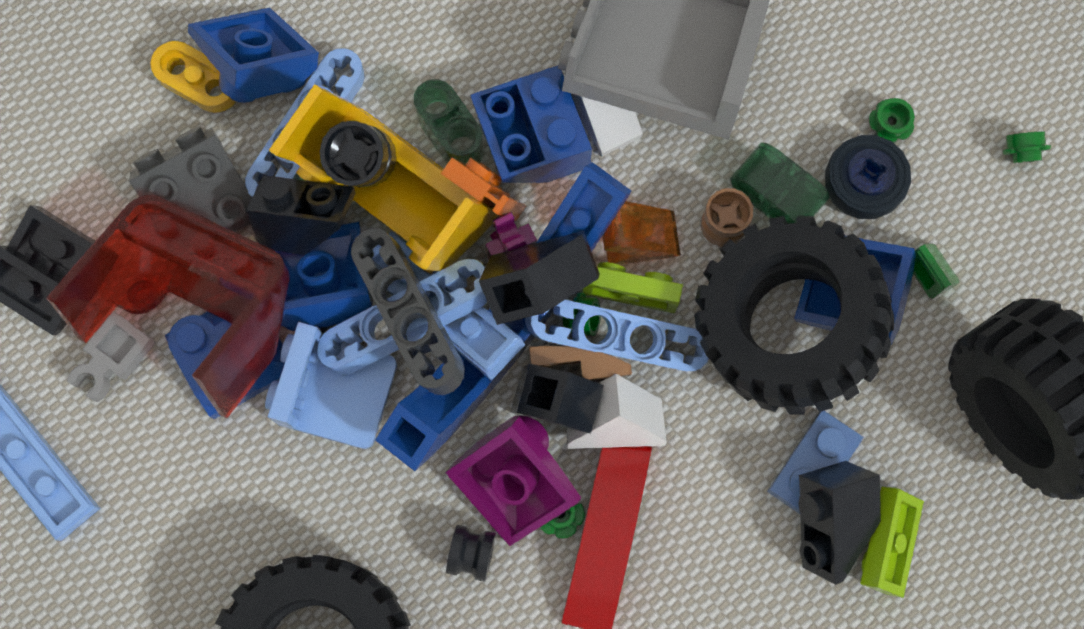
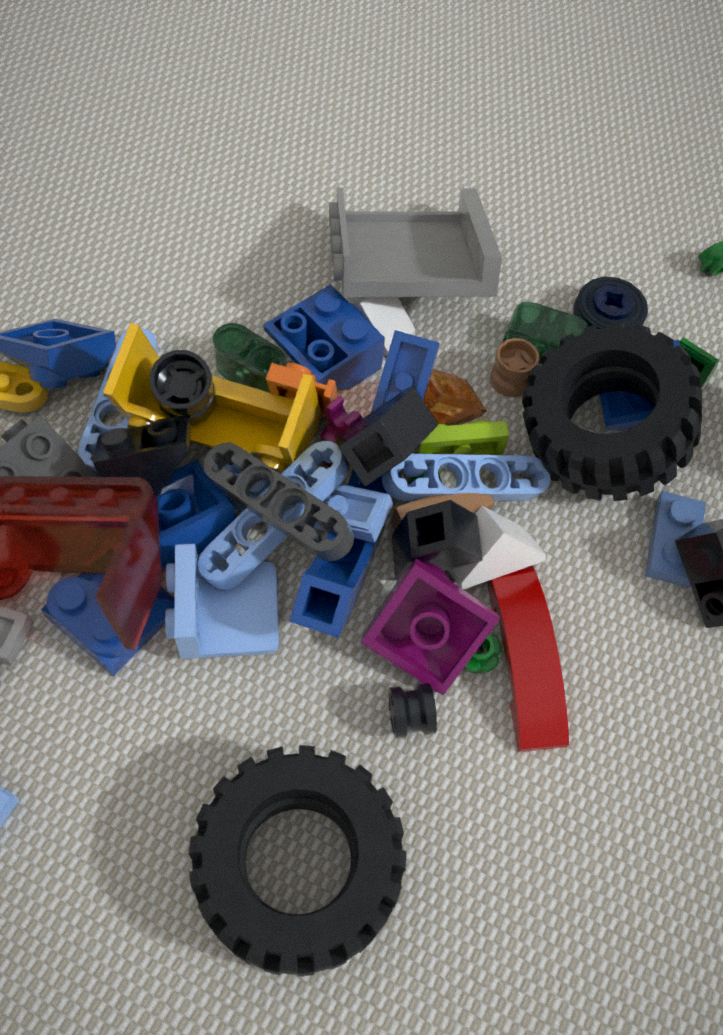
camera: 25 degrees left, 15 degrees down
(898, 110) = (608, 263): green plate -> none

